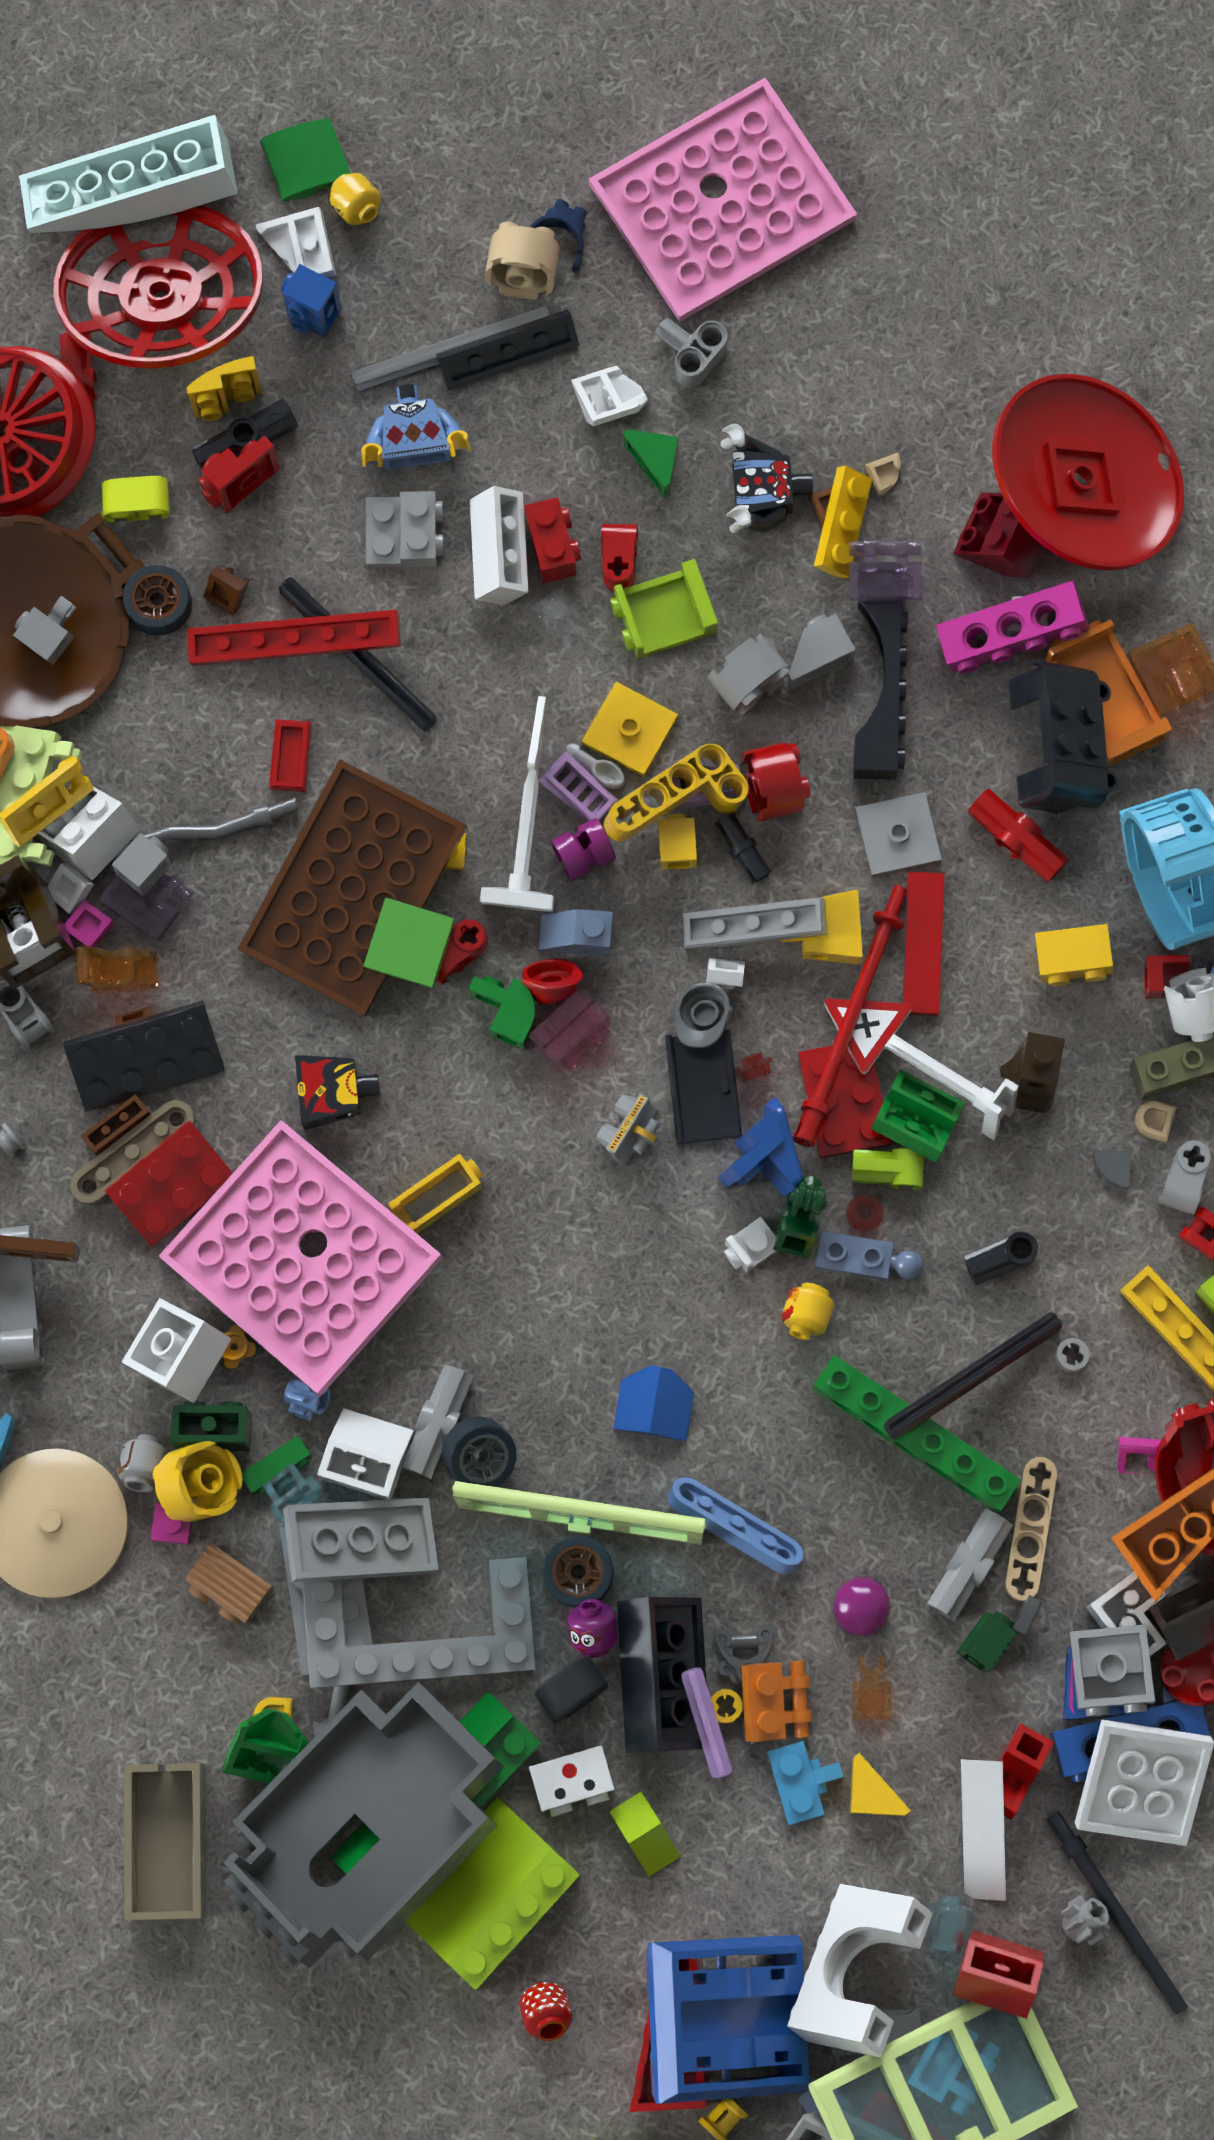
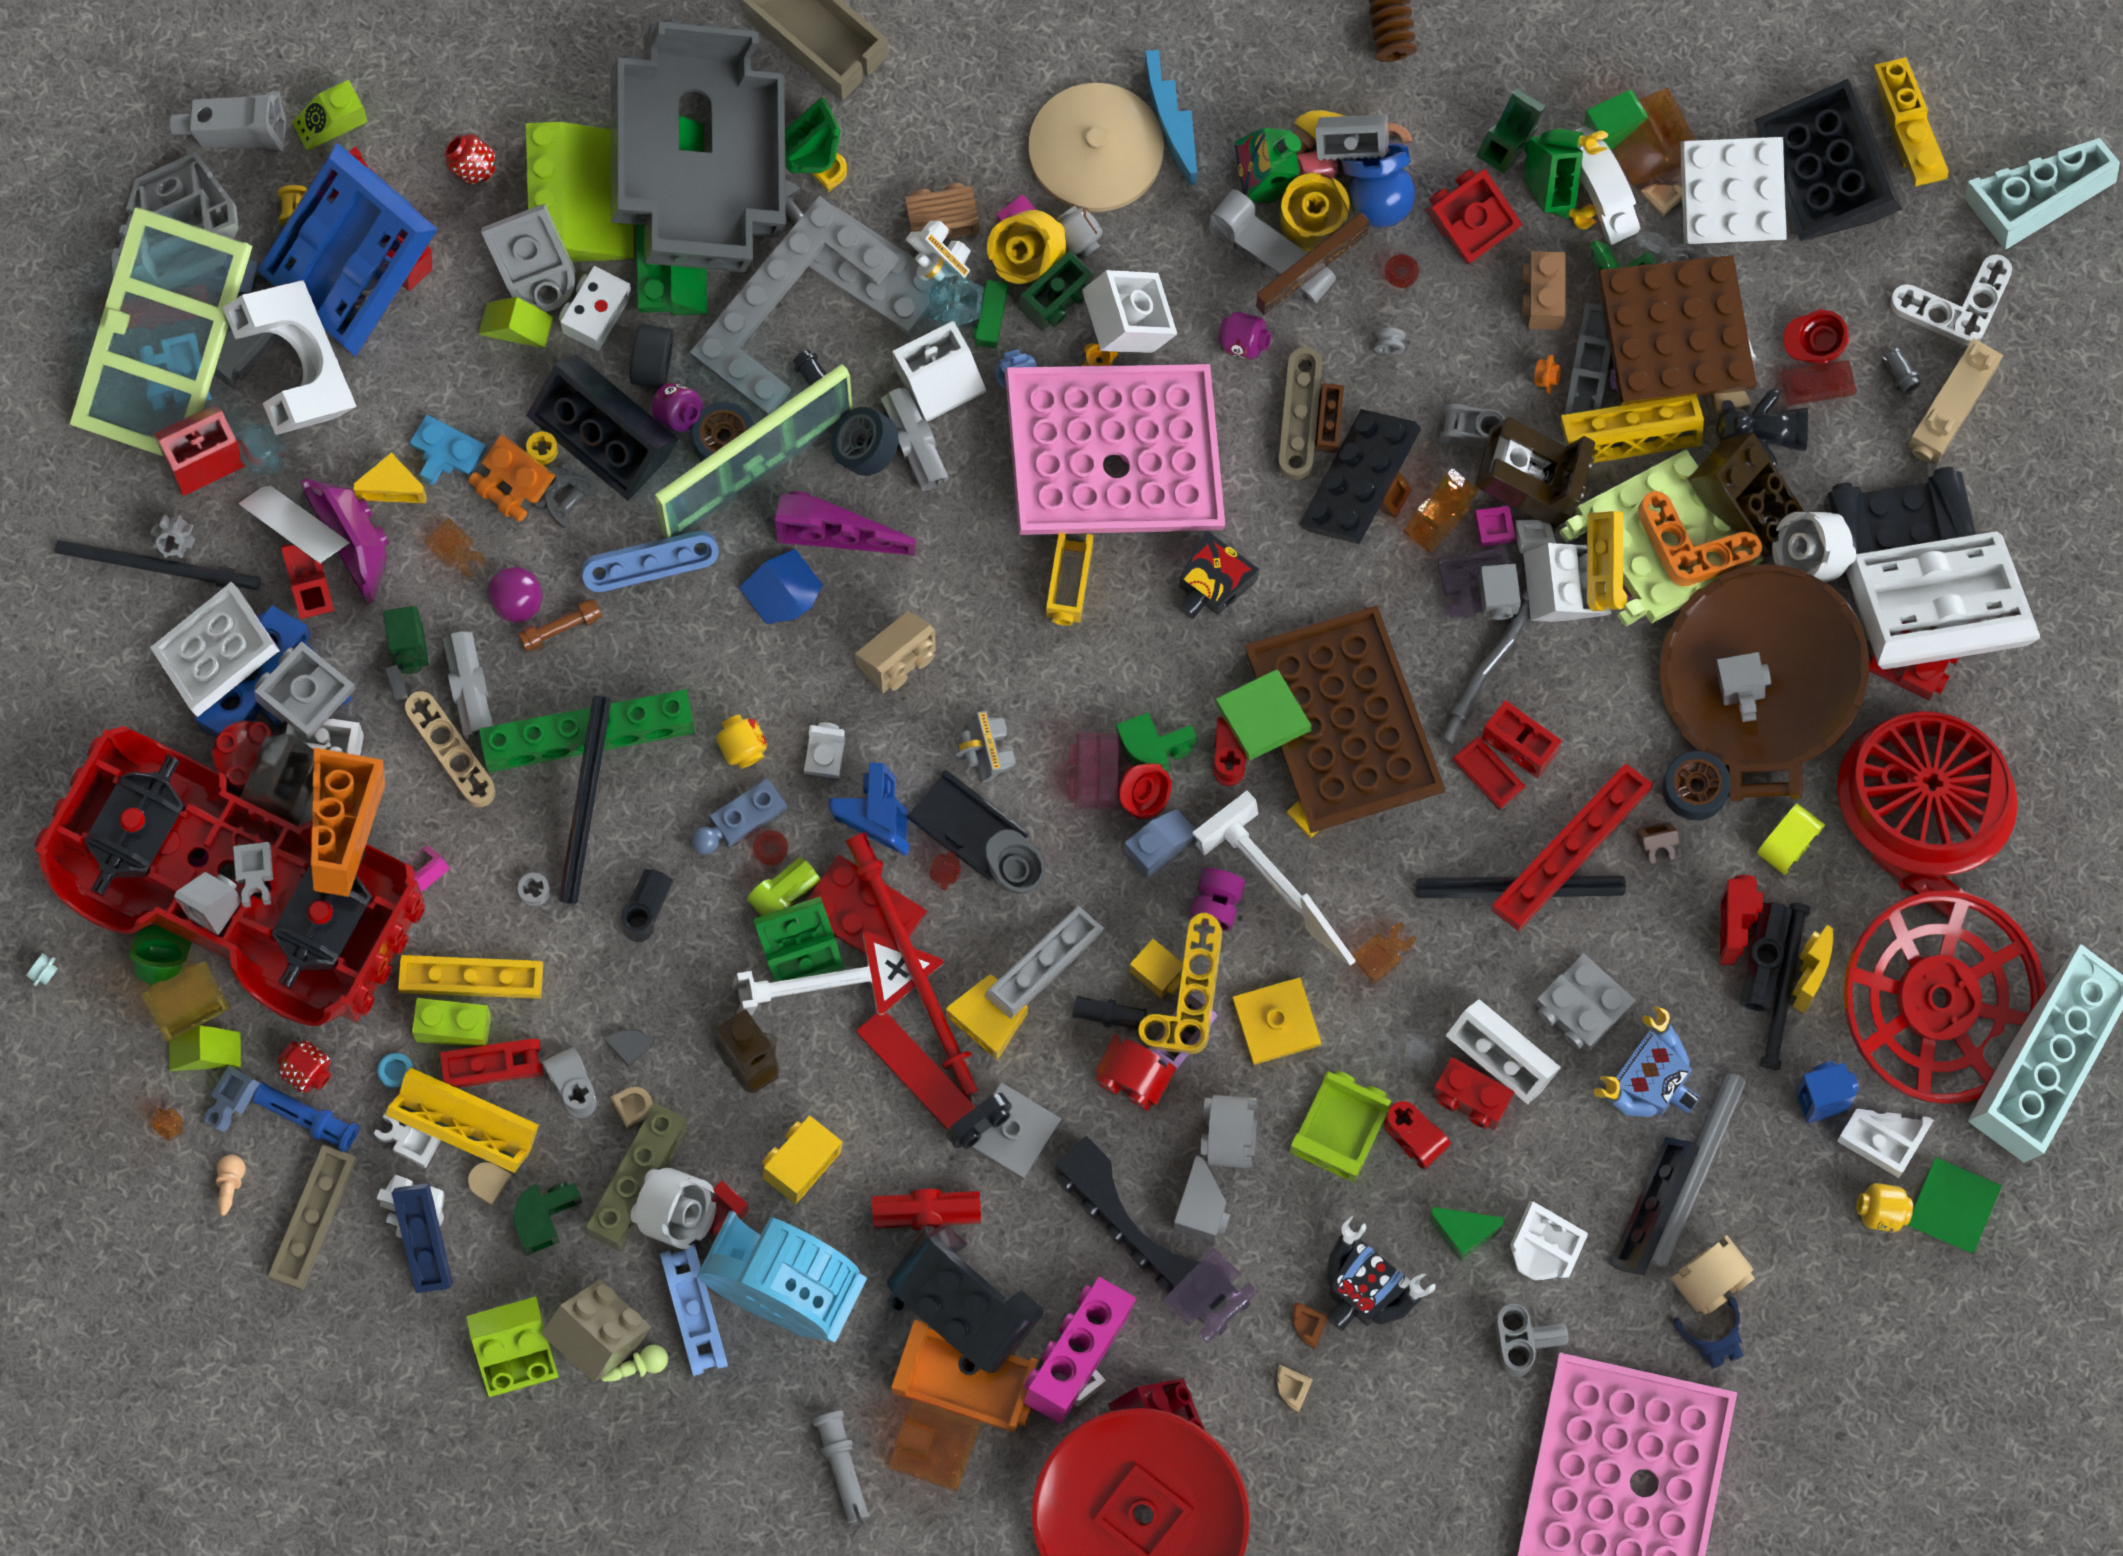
camera: 130 degrees right, 5 degrees down
(109, 1252) = (1244, 335): none -> magenta head
(169, 1183) = (1253, 415): red plate -> none
(244, 747) = (1521, 739): none -> red brick
(271, 1547) = (936, 258): none -> white hips
(282, 391) = (1785, 984): none -> black bar
(360, 1539) = (883, 312): light grey plate -> none
(458, 1557) = (807, 364): none -> black pin
(509, 700) = (1381, 955): none -> clear orange plate
(559, 789) = (1282, 954): lavender slope -> none
(579, 1426) = (818, 523): none -> magenta wedge
(584, 1868) = (531, 256): none -> light grey tile
(602, 770) = (1263, 972): light grey piece -> none
(623, 1262) = (897, 651): none -> tan slope
(706, 1723) = (543, 422): lavender axle -> none
(725, 973) = (1031, 913): white plate -> none
(801, 1218) = (806, 791): dark green brick -> none
(842, 521) = (1284, 1317): yellow plate -> none
(883, 1556) = (587, 612): none -> dark orange bar
(905, 850) = (988, 1114): none -> black plate
(938, 1792) = (348, 517): none -> magenta wedge

